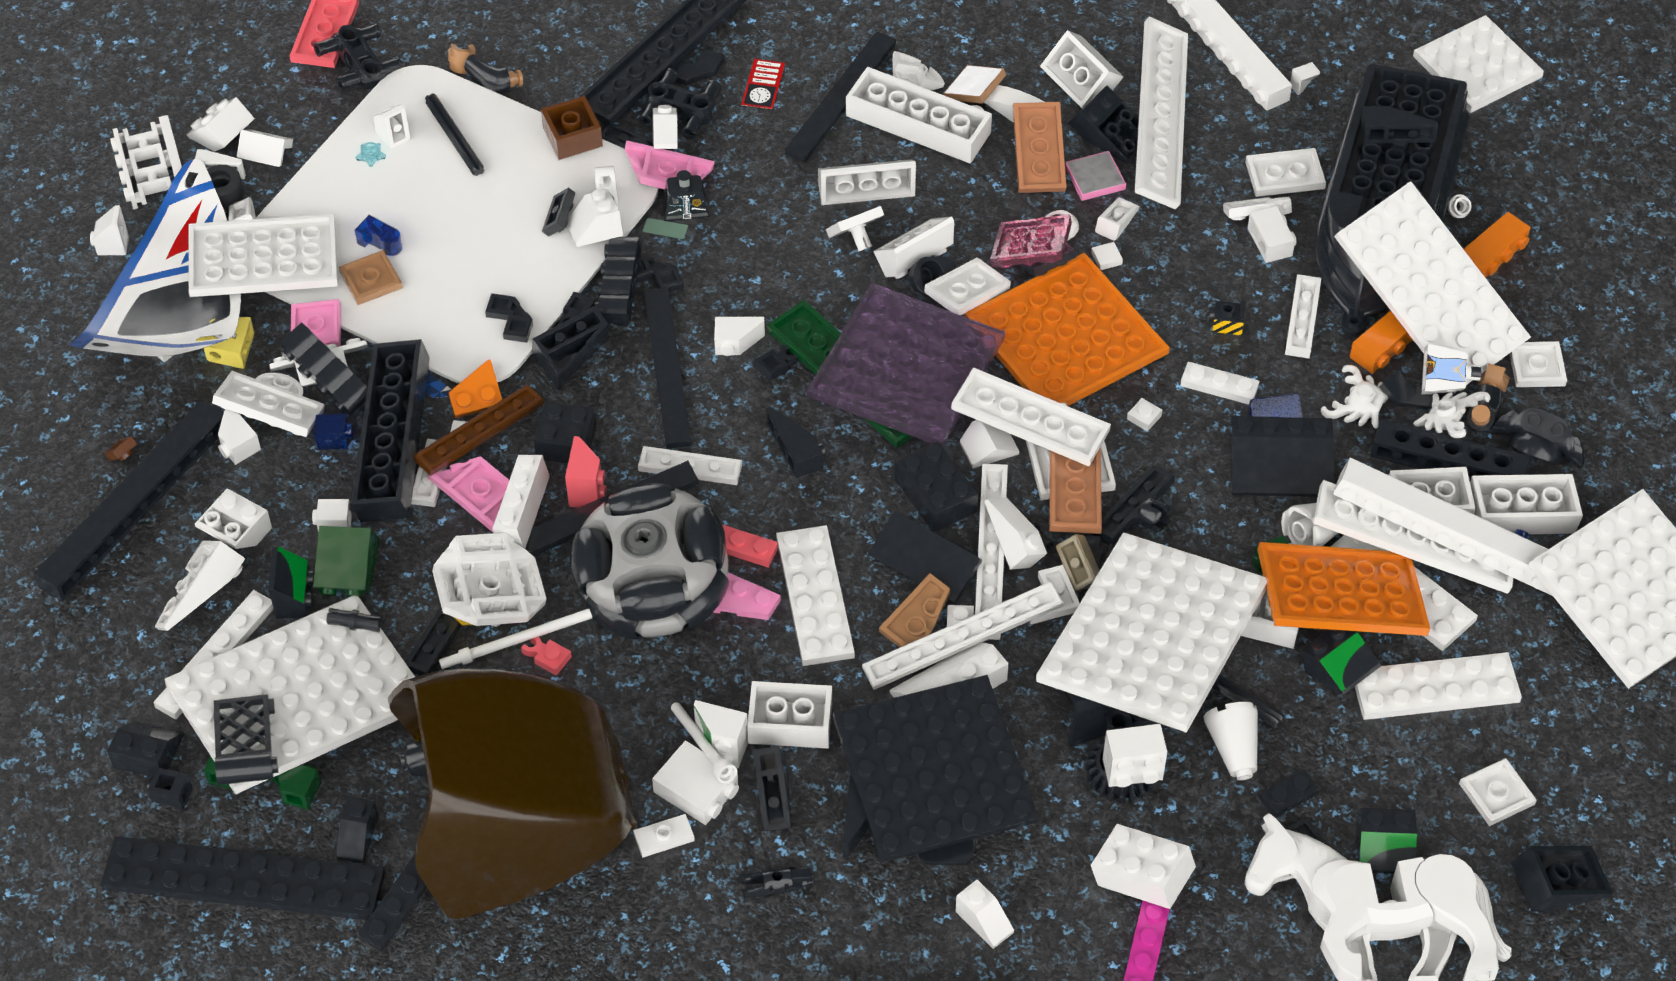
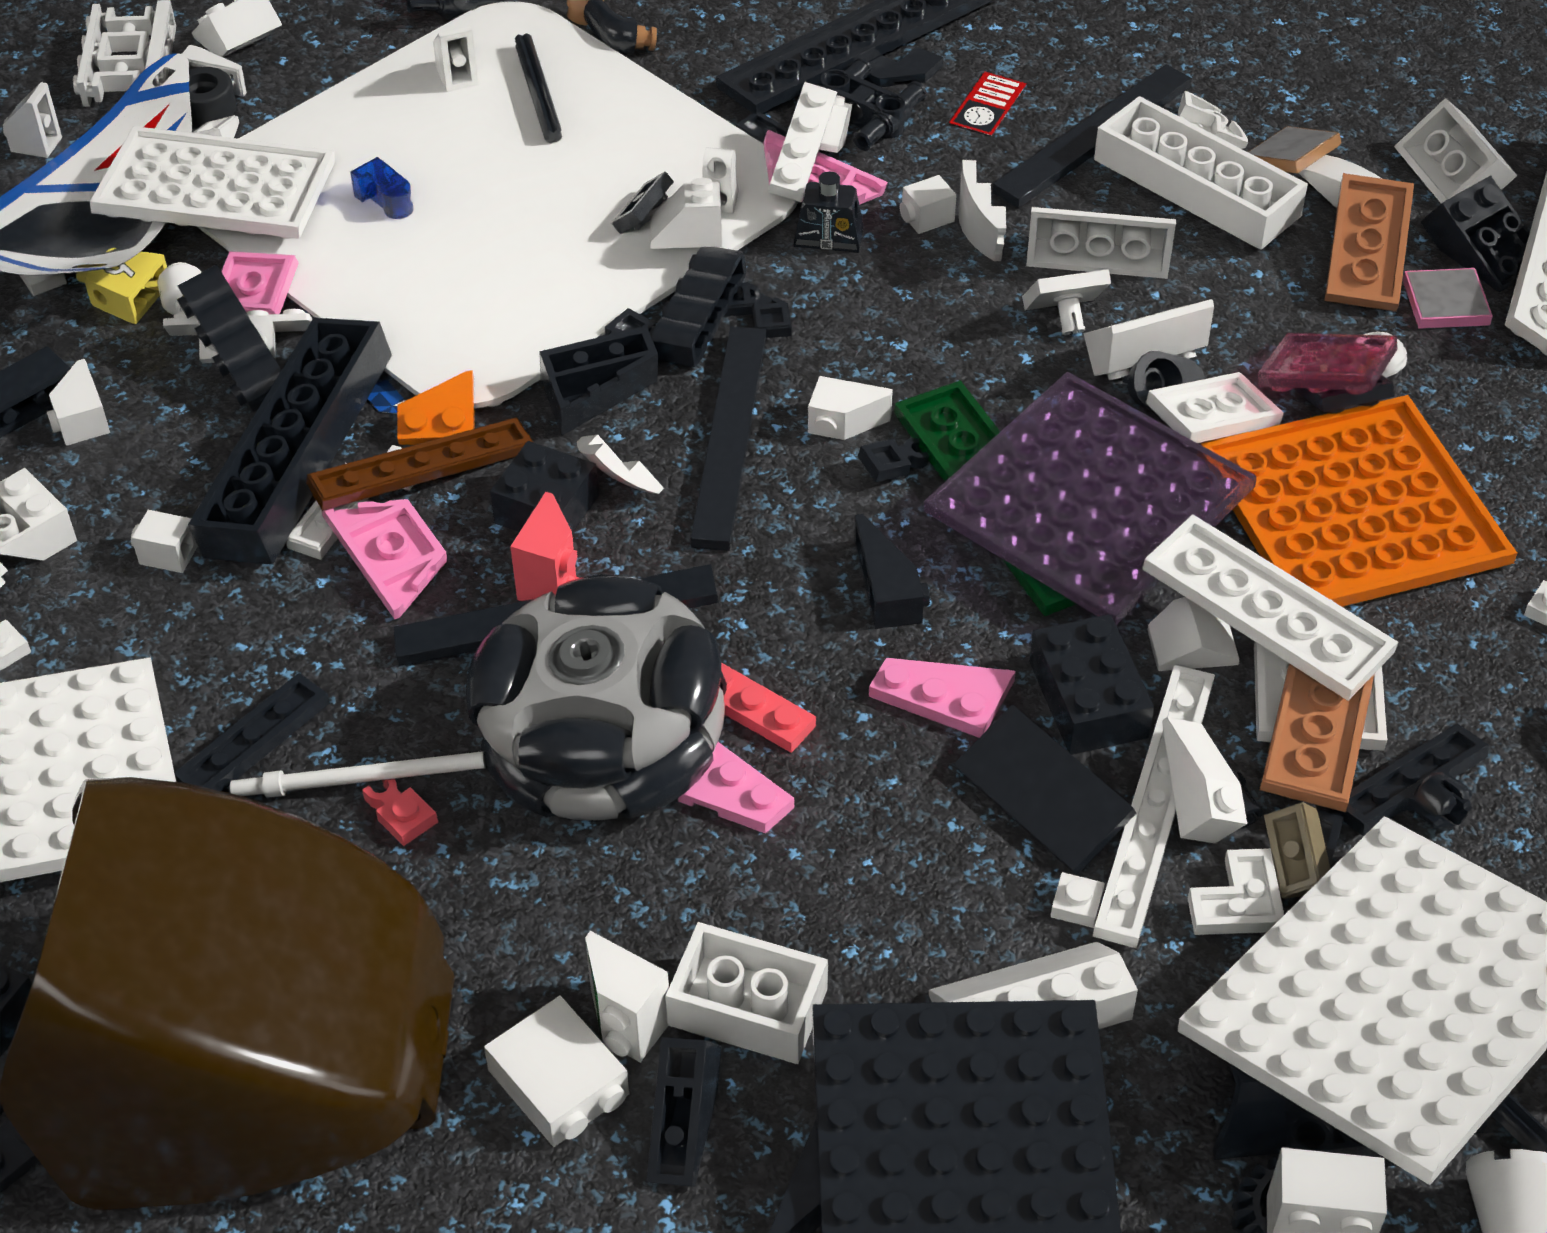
camera: 15 degrees right, 5 degrees down
(262, 147) = (280, 61): white panel -> none
(268, 337) = (168, 281): none -> white head
(270, 401) = (144, 366): white plate -> none
(290, 584) = (53, 619): black slope -> none
(332, 431) = (213, 425): clear blue brick -> none
(345, 560) = (152, 603): dark green slope -> none
(354, 620) = (122, 691): black pin -> none
(368, 148) = (417, 90): clear light blue plate -> none
(370, 277) = (352, 238): medium nougat tile -> none
(488, 581) = (342, 676): white piece -> none
(518, 321) = (533, 326): black tile -> none
(522, 498) = (439, 575): white brick -> none
(571, 127) = (697, 101): reddish brown brick -> none
(611, 408) = (629, 473): none -> white brick
(654, 147) = (802, 142): none -> white plate
(663, 835) = (476, 1148): white plate -> none
(665, 228) = (791, 255): sand green sticker -> none
(705, 466) = (732, 580): white tile -> none
(722, 768) = (600, 1057): white piece -> none
(747, 173) = (928, 204): none -> white brick
(782, 178) = (980, 221): none -> white slope
(815, 596) = (850, 814): white plate -> none
(849, 510) = (944, 693): none -> bright pink wing
(917, 613) = (1004, 881): medium nougat wing -> none
(962, 635) = (1073, 926): white tile -> none
(1106, 256) = (1442, 408): white tile -> none
(1116, 218) = (1466, 360): white slope -> none
(1144, 414) = (1456, 645): white plate -> none

